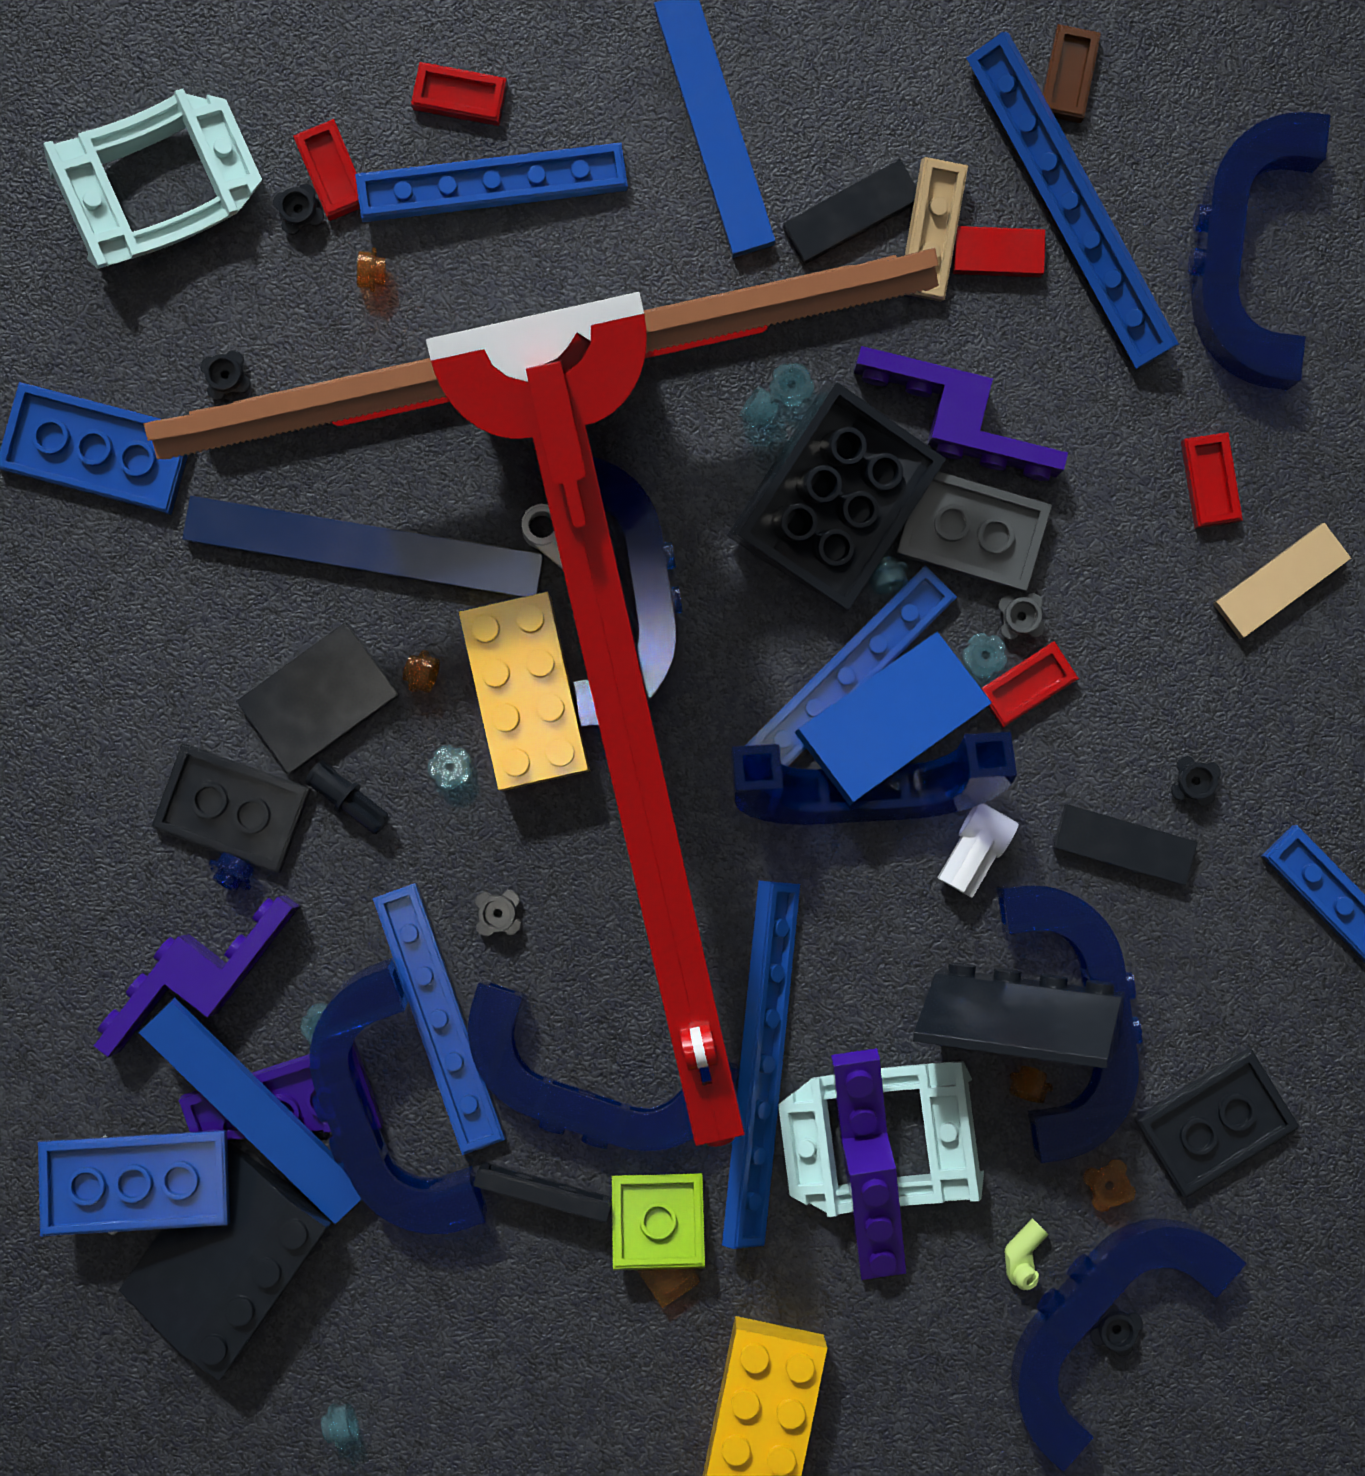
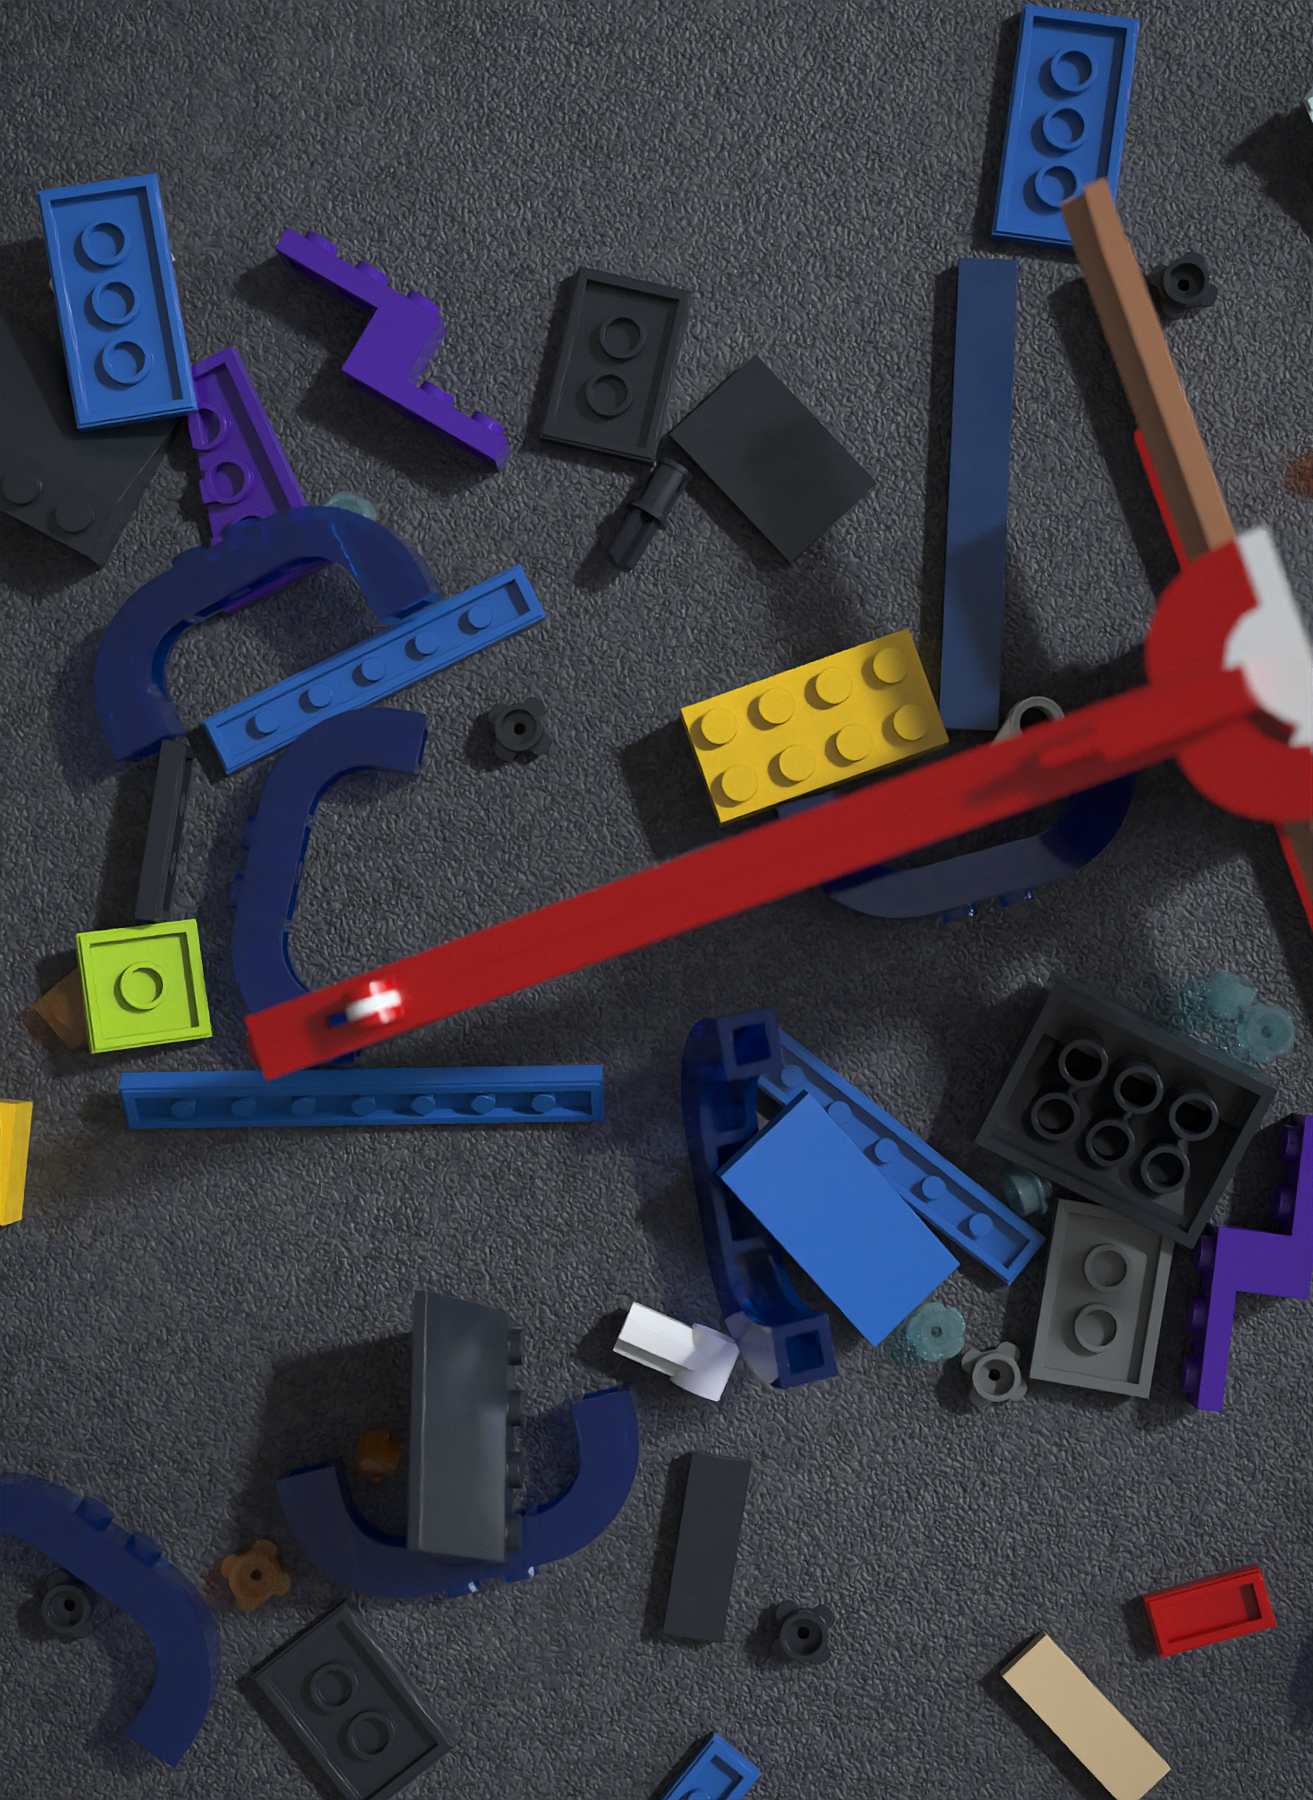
camera: 90 degrees right, 0 degrees up
(231, 872) = (531, 377): clear blue plate -> none
(252, 1109) = (229, 441): blue tile -> none
(421, 672) = (823, 590): clear orange plate -> none
(461, 772) = (700, 659): clear light blue plate -> none
(869, 1163) = (249, 1253): dark purple bracket -> none
(947, 1131) = (304, 1351): light aqua wedge -> none
(1020, 1258) = (151, 1466): yellowish green arm -> none
(1029, 684) = (904, 1394): red tile -> none

